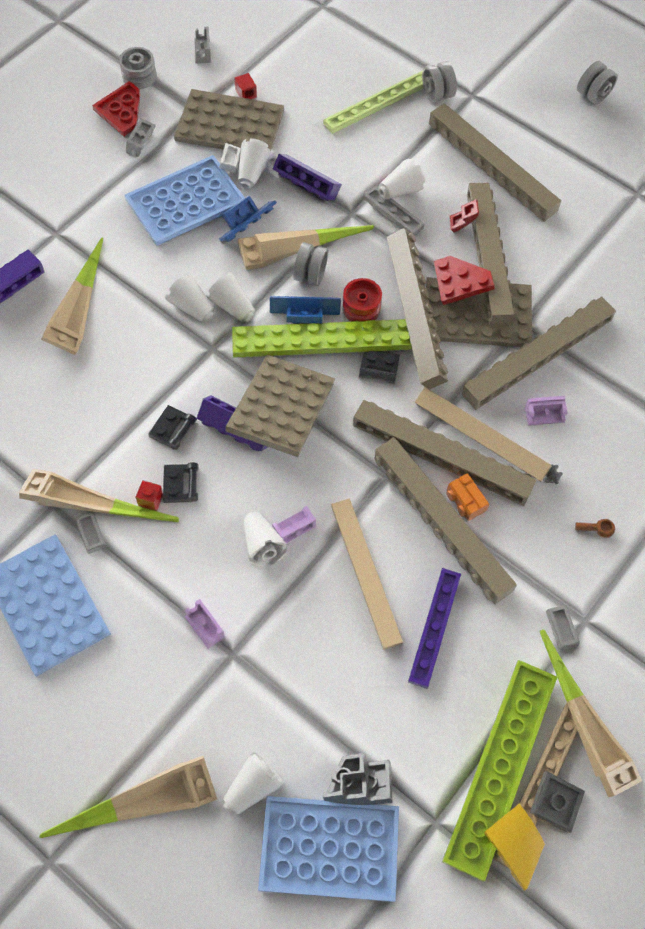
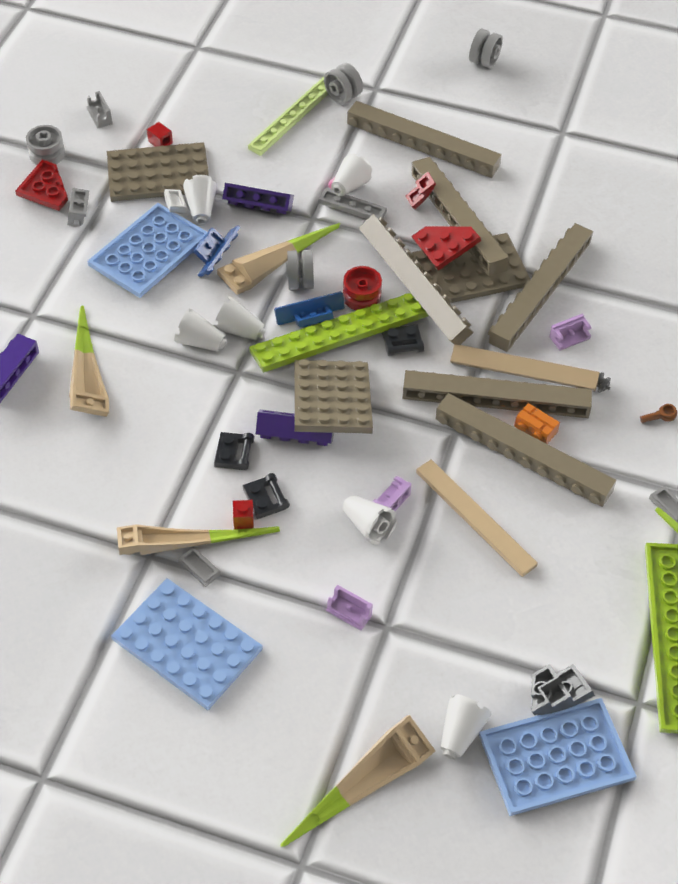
camera: 20 degrees left, 10 degrees down
(434, 628) = (560, 542): dark purple plate -> none

